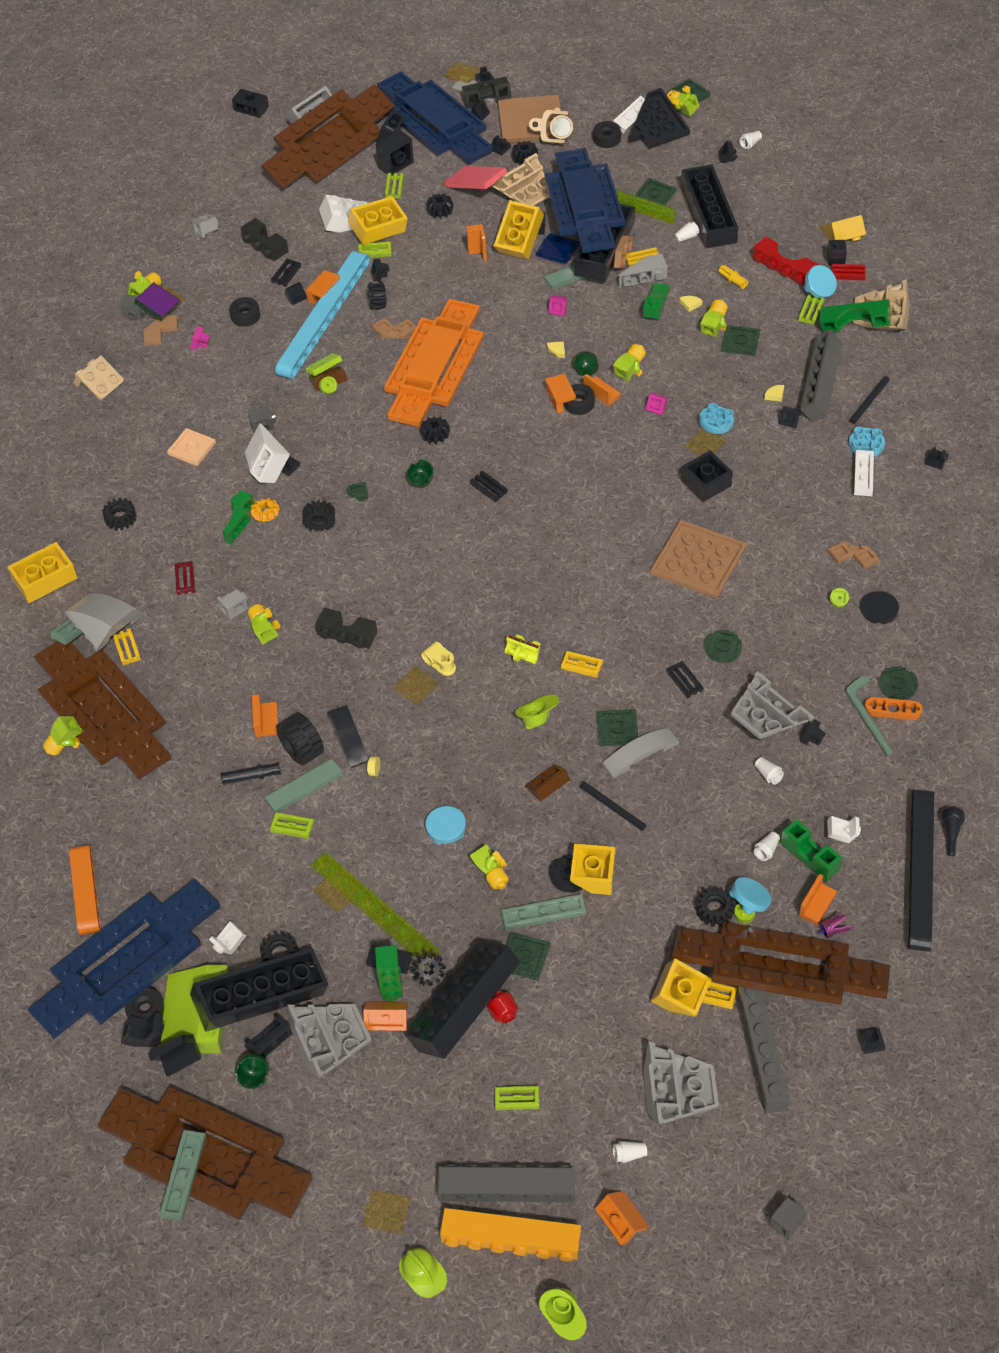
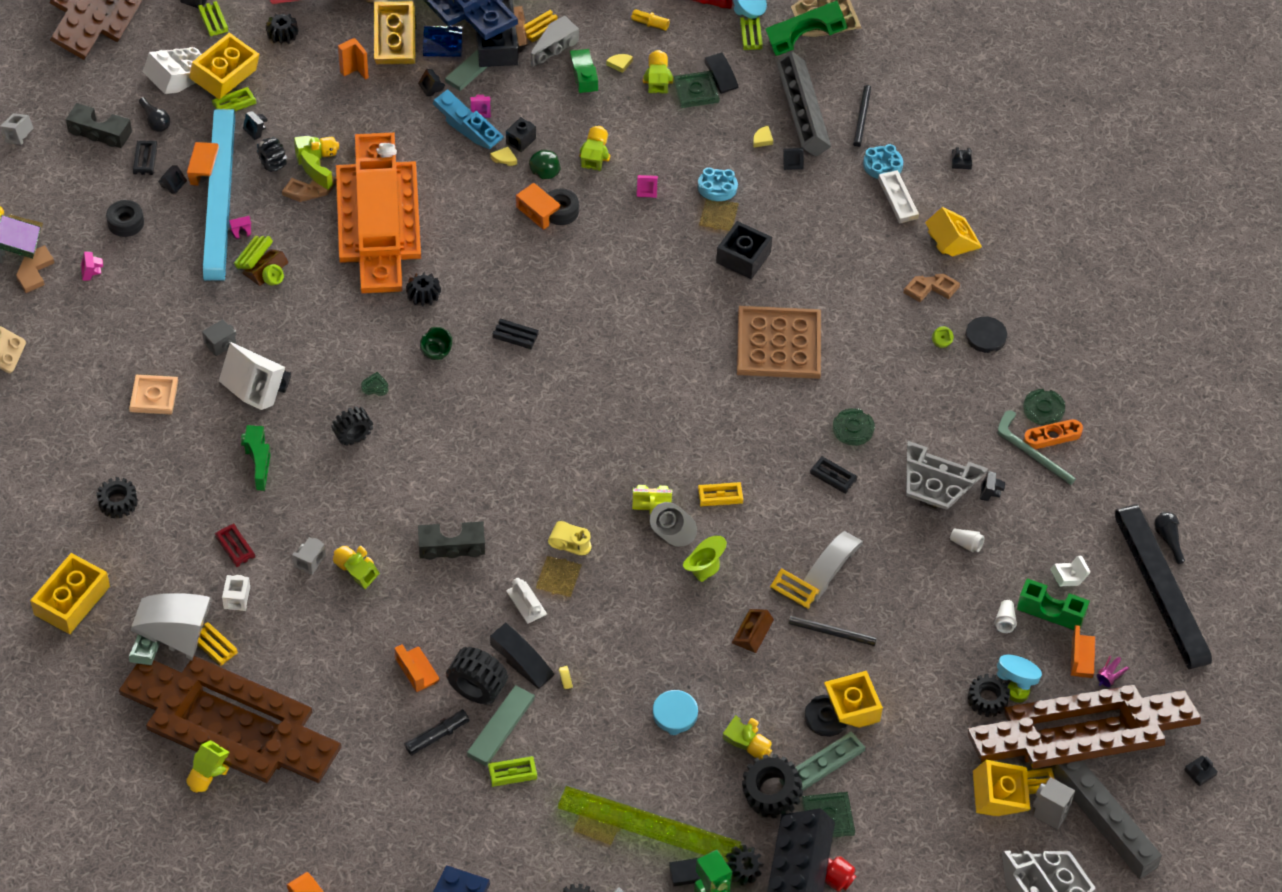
camera: 30 degrees left, 0 degrees up
(162, 613) = (236, 592): none -> white brick
(268, 514) = (290, 439): light orange gear -> none
(309, 245) = (157, 118): none -> black piece
(322, 340) = (240, 223): none -> dark pink tile
(378, 695) = (525, 601): none -> white hinge
(402, 315) = (312, 167): none -> lime slope
(410, 300) = (320, 147): none -> piece
(463, 316) = (386, 150): none -> white plate
(476, 903) = (767, 769): none -> black tyre
(526, 674) = (673, 524): none -> light grey piece
(530, 277) = (430, 83): none -> black tile
(540, 312) = (470, 124): none -> dark azure slope
(578, 335) = (521, 134): none -> black brick
(601, 390) = (584, 190): orange panel -> none
(608, 771) = (810, 598): none -> yellow tile
(617, 727) = (793, 547): clear green tile -> none
(717, 1017) = (1053, 802): none -> light grey brick
(768, 333) = (722, 72): none -> black slope
(894, 515) = (951, 233): none -> yellow slope

